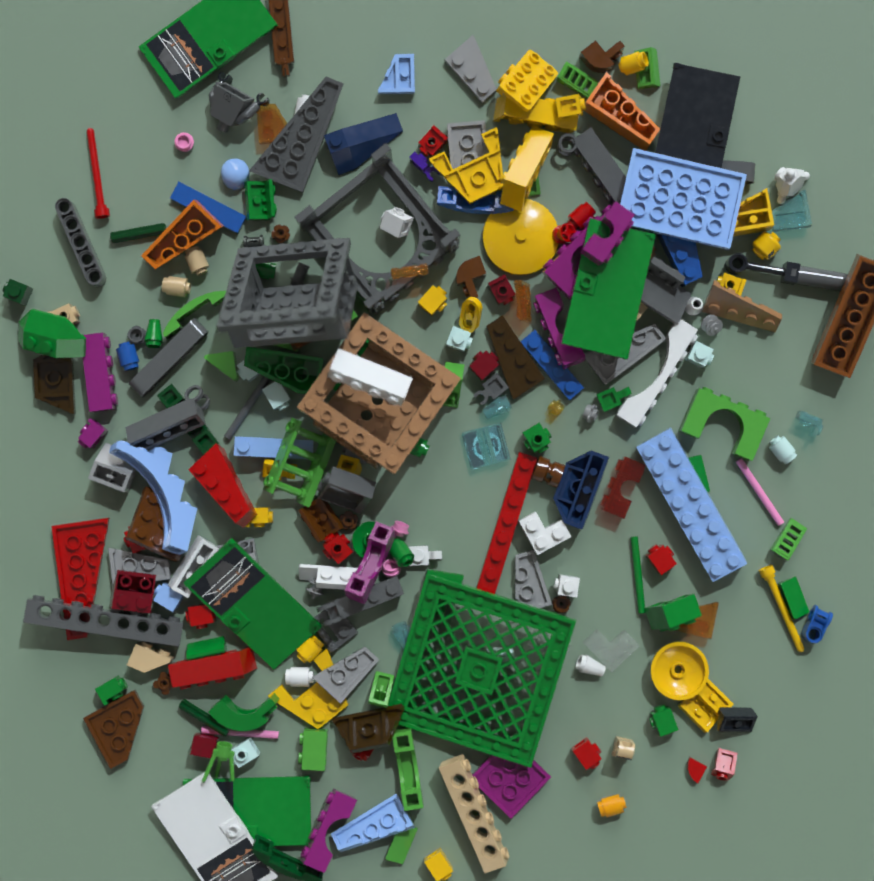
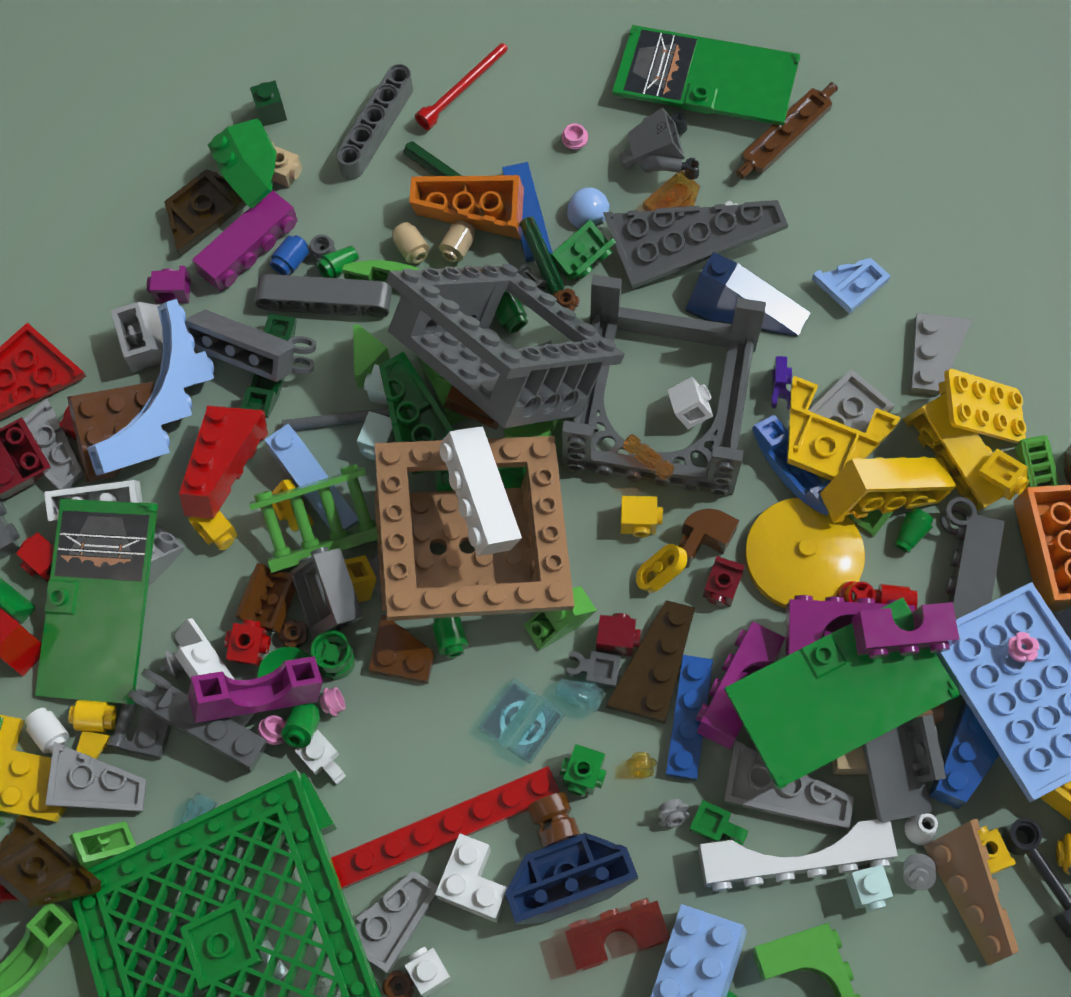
camera: 50 degrees right, 20 degrees down
(167, 597) = (32, 506): light blue brick -> none
(244, 224) = (541, 255): none -> dark green axle
(378, 510) = (333, 655): none -> green wheel
(405, 478) = (400, 654): none -> reddish brown wing
(440, 140) = (817, 369): red brick -> none
(459, 339) = (620, 580): light aqua brick -> none
(523, 300) = (735, 613): clear orange wing -> none
(555, 173) = (913, 529): none -> green cone
(661, 189) = (1020, 654): none -> bright pink plate

